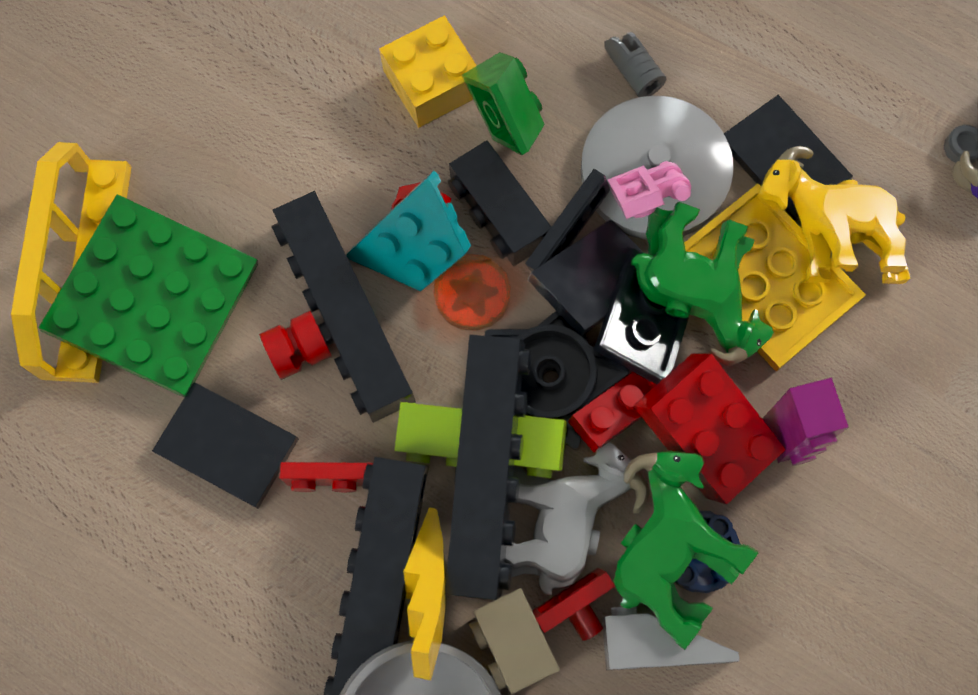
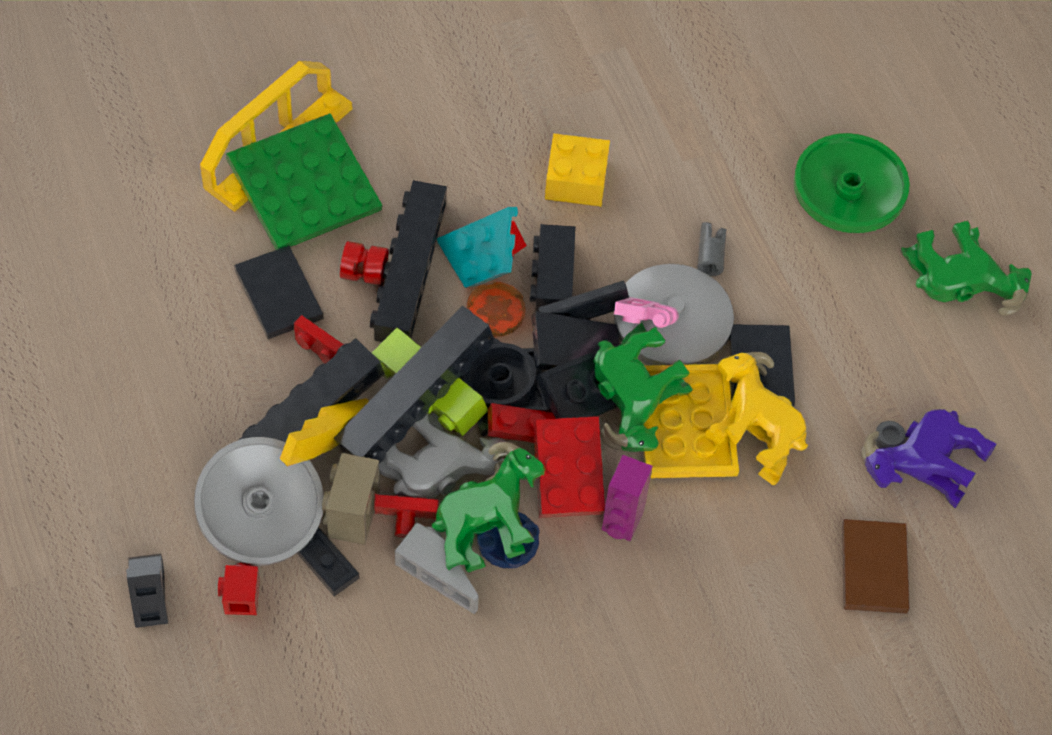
camera: 30 degrees right, 15 degrees down
(506, 102) = (605, 212): green slope -> none

